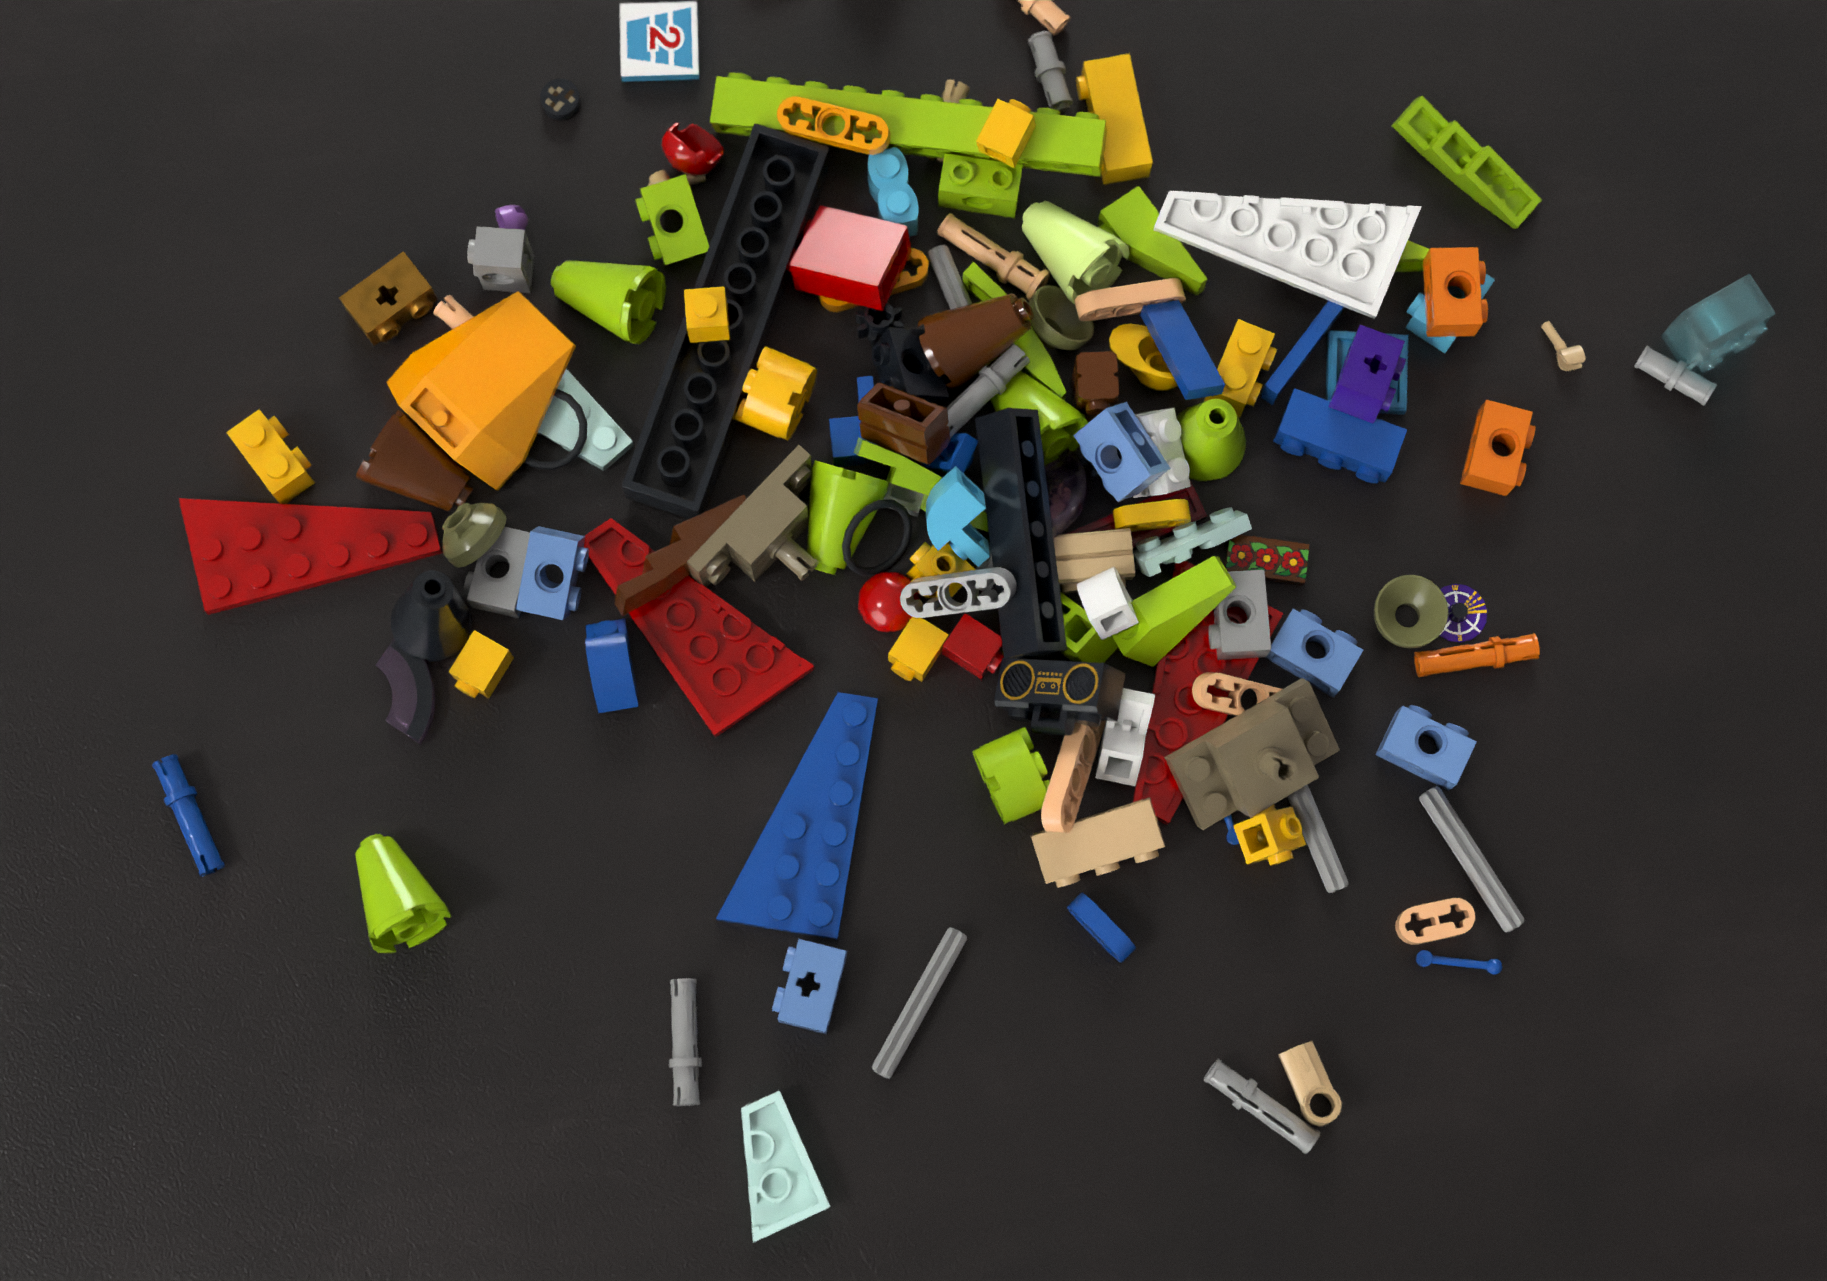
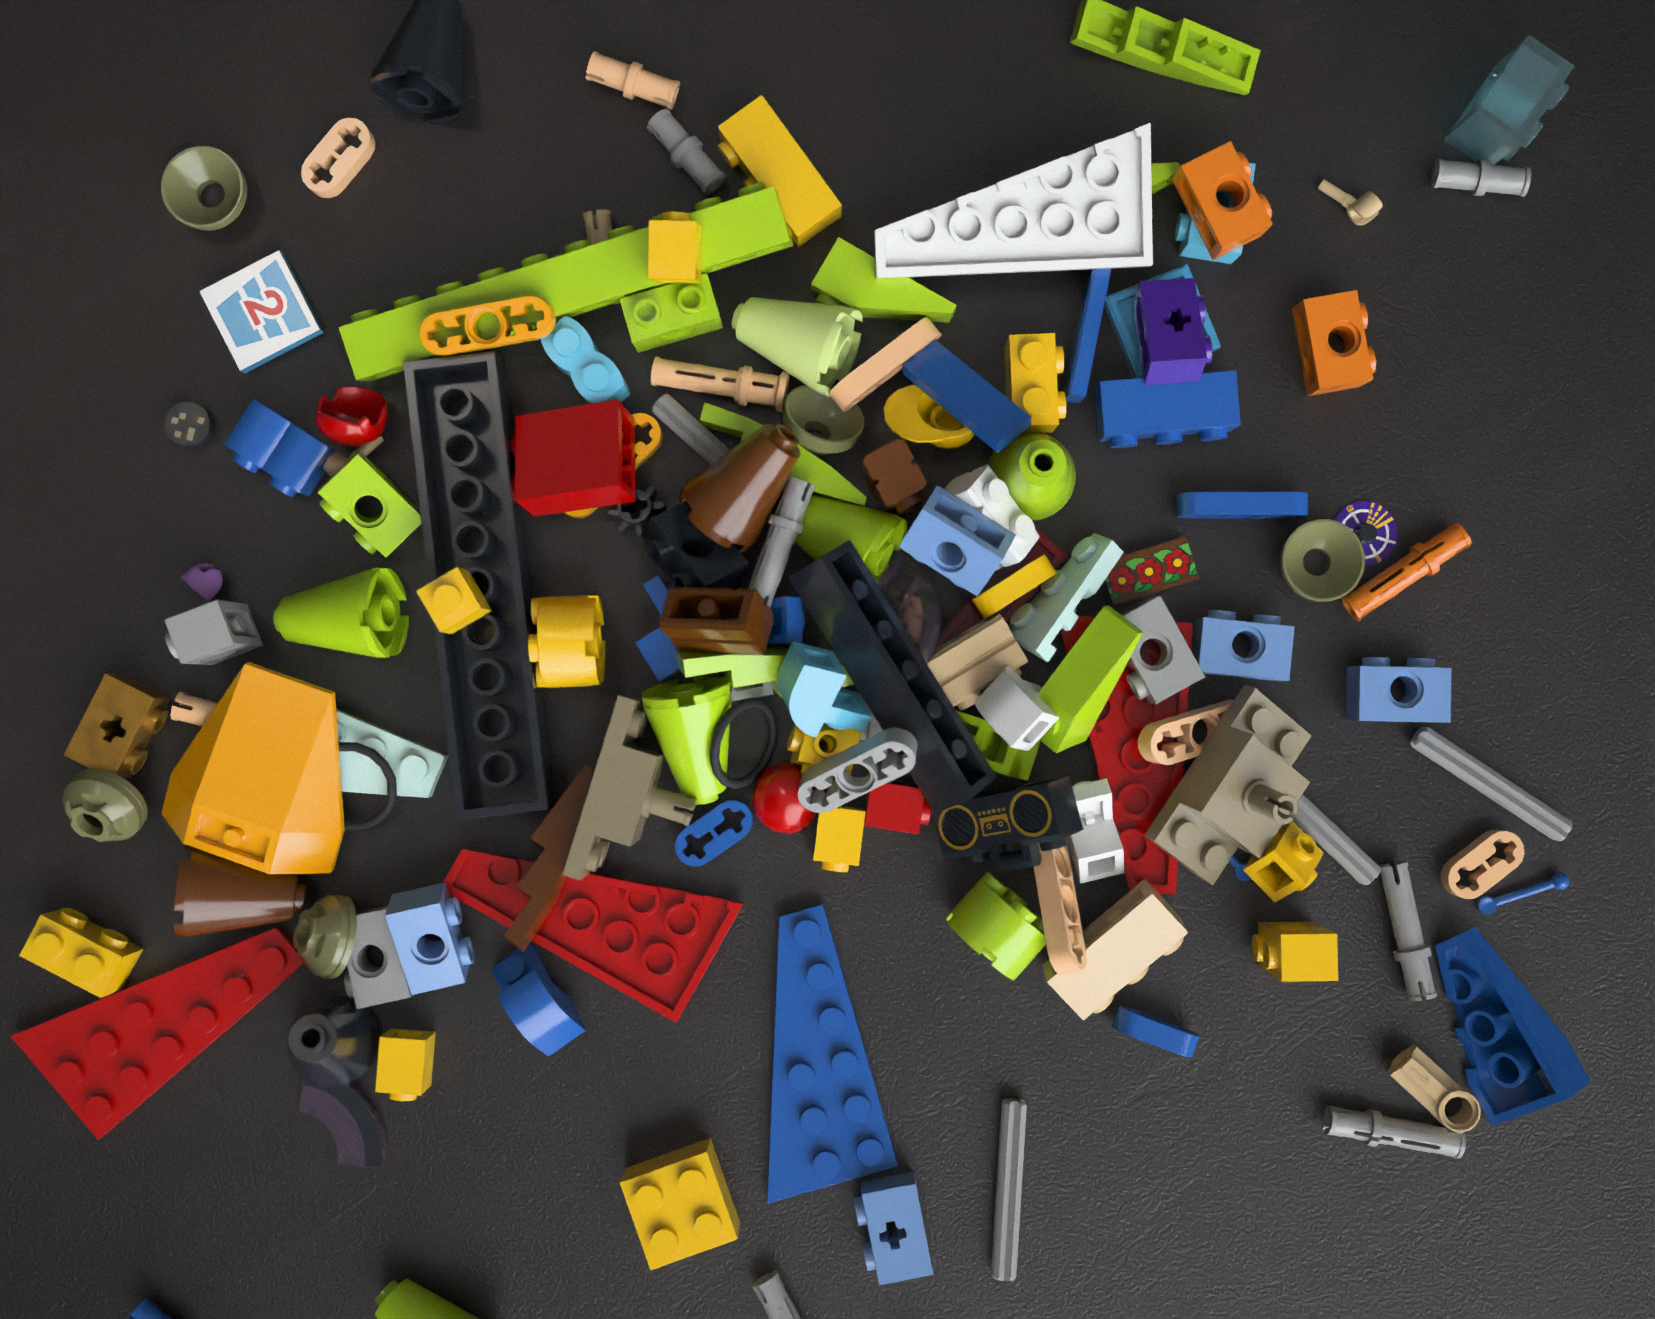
camera: 20 degrees left, 10 degrees up
(359, 349) = (109, 800): none -> olive piece
(623, 148) = (279, 448): none -> blue brick
(646, 881) = (680, 1204): none -> yellow brick
(817, 592) = (720, 841): none -> blue beam
(1245, 908) = (1296, 951): none -> yellow brick
(1347, 945) = (1407, 931): none -> light grey pin
(1366, 540) = (1242, 505): none -> blue beam
(1393, 1075) = (1510, 1043): none -> blue wedge

